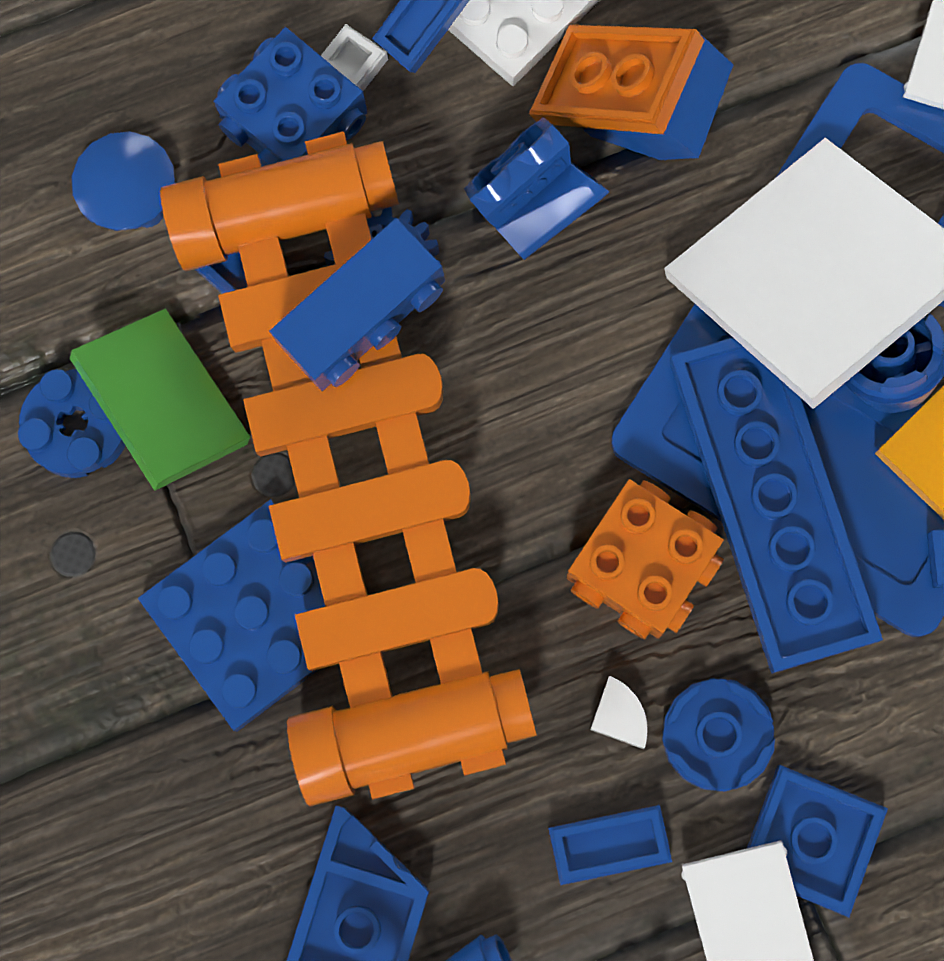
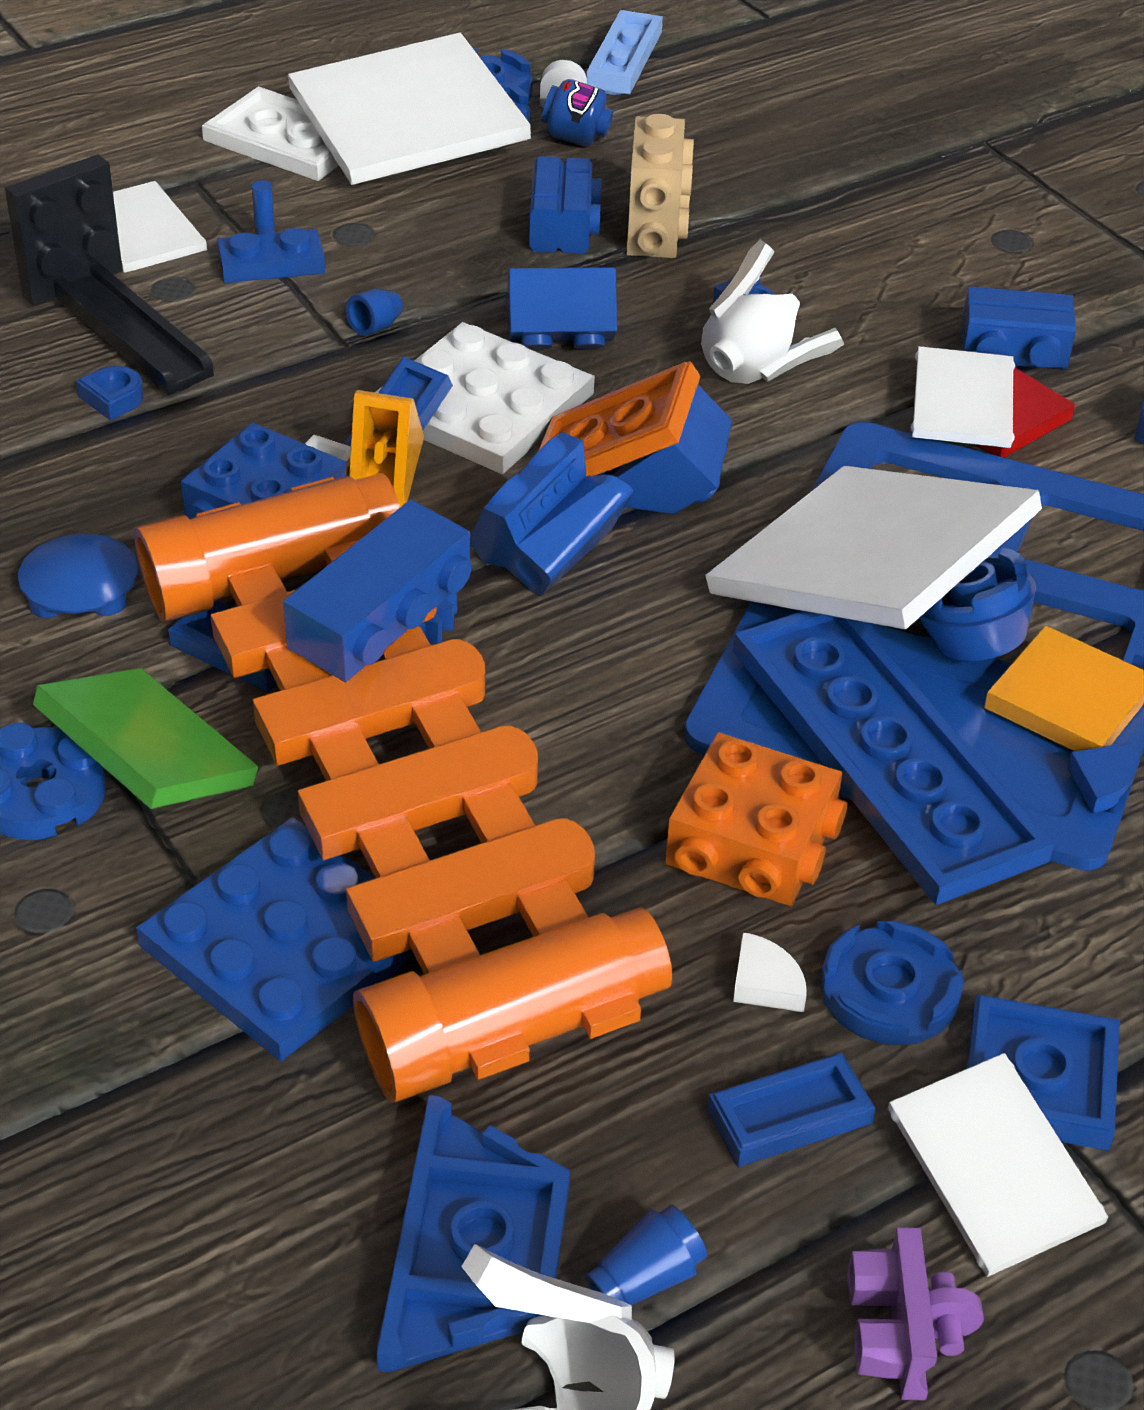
camera: 20 degrees left, 35 degrees down
(400, 76) = (386, 439): none -> light orange slope

